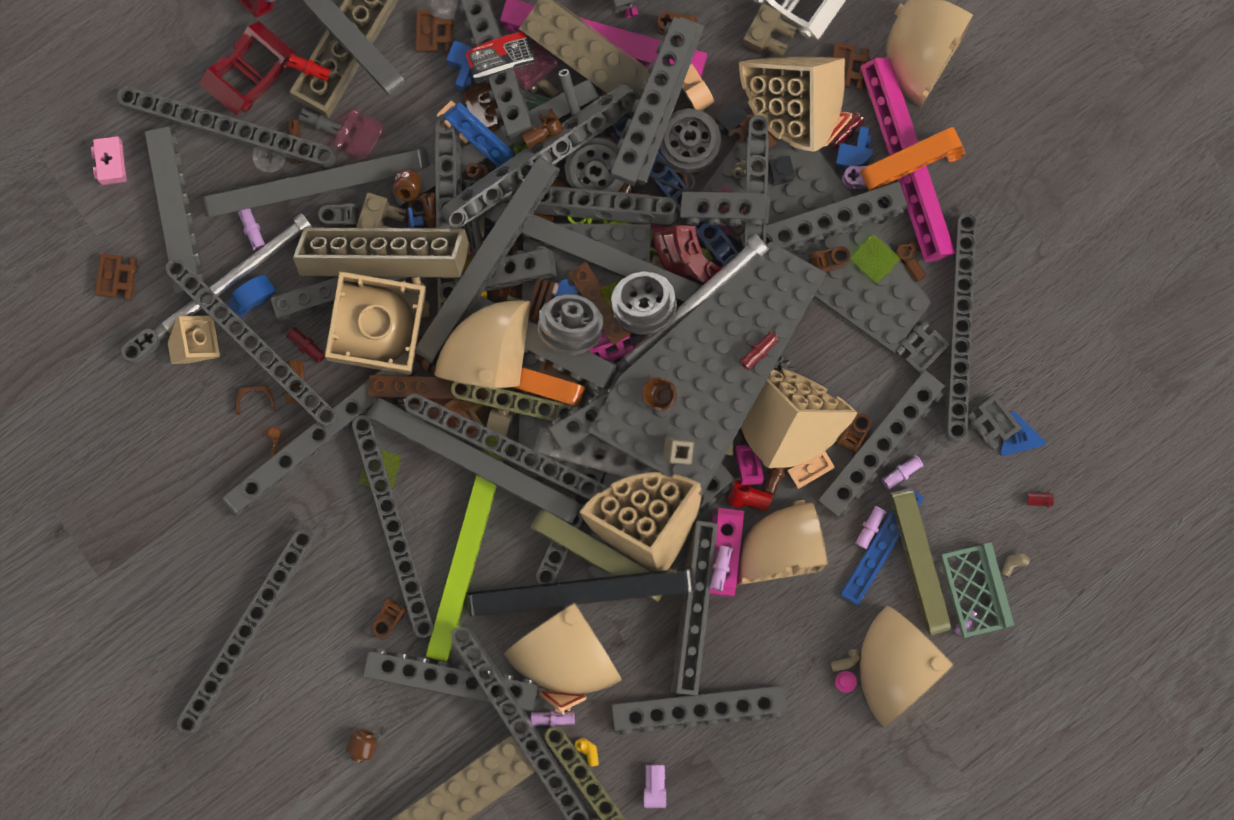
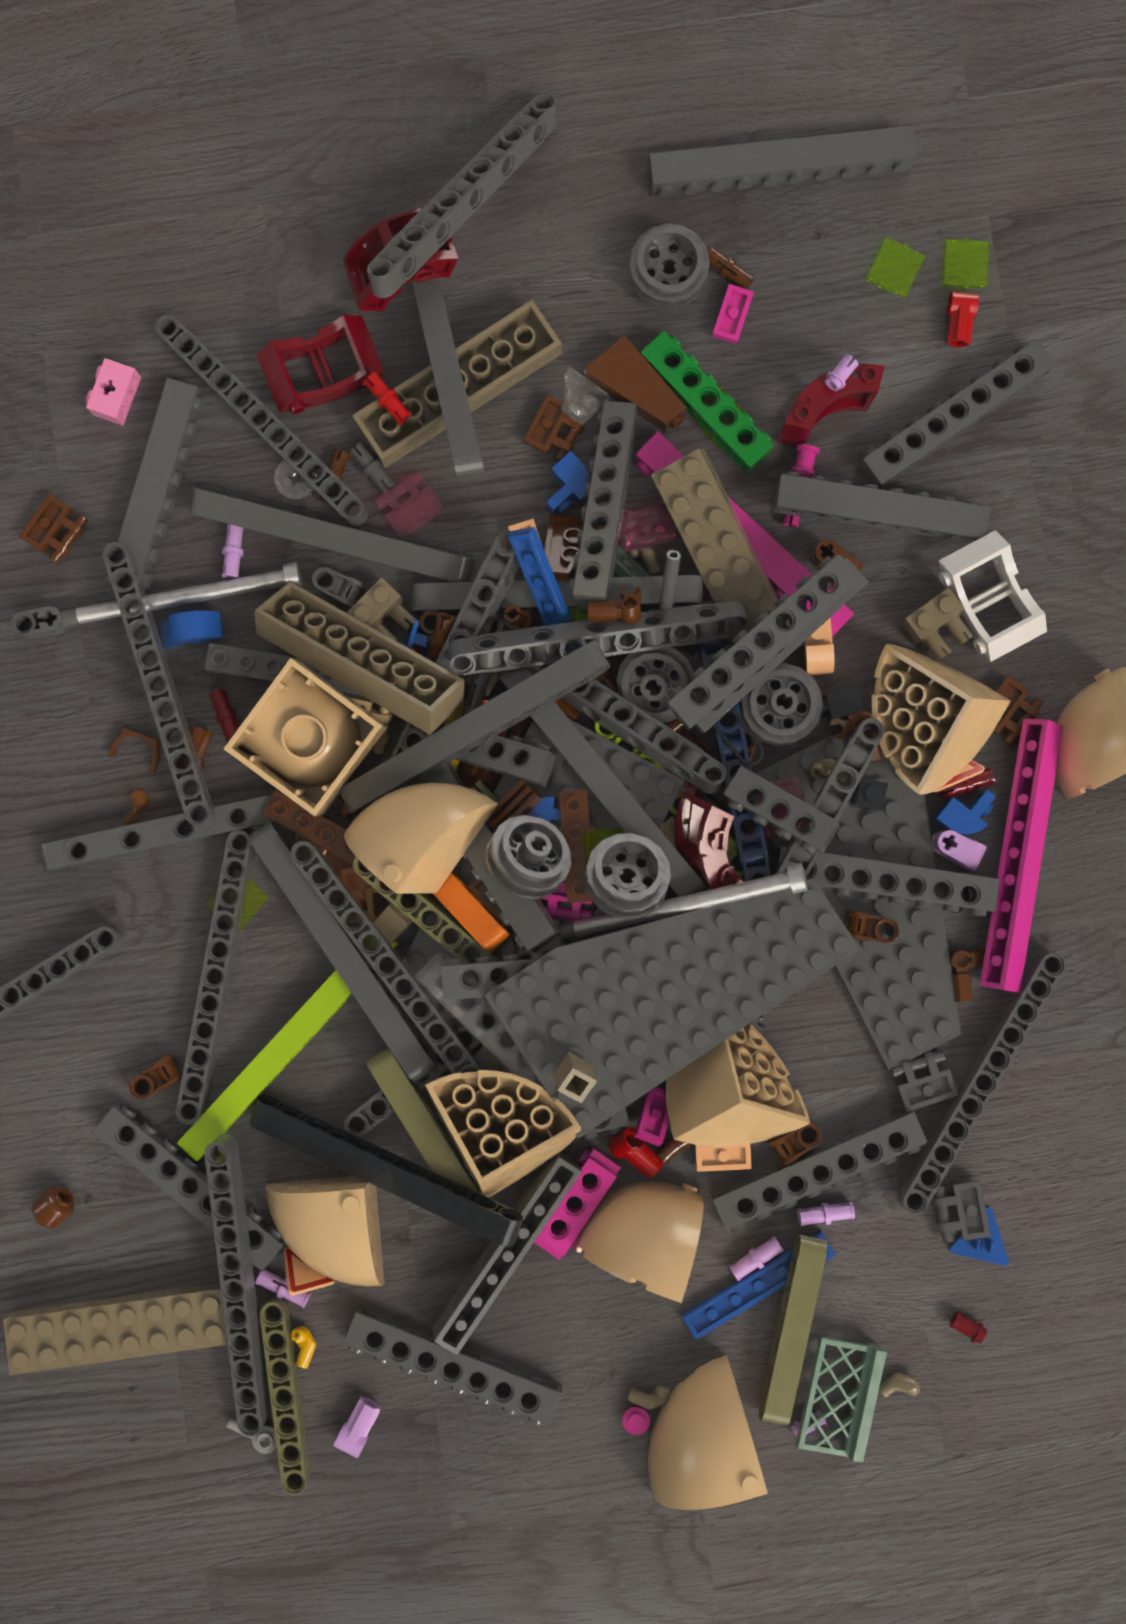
camera: 30 degrees right, 5 degrees up
(193, 340) = (100, 646): tan slope -> none
(407, 185) = (428, 592): reddish brown head -> none
(499, 56) = (612, 495): sticker -> none
(659, 393) = (588, 997): reddish brown hair -> none
(721, 568) = (558, 1226): lavender pin -> none
(759, 350) = (732, 1004): dark red pin -> none
(875, 258) = (923, 951): clear neon green piece -> none
(910, 159) = (1030, 861): orange beam -> none

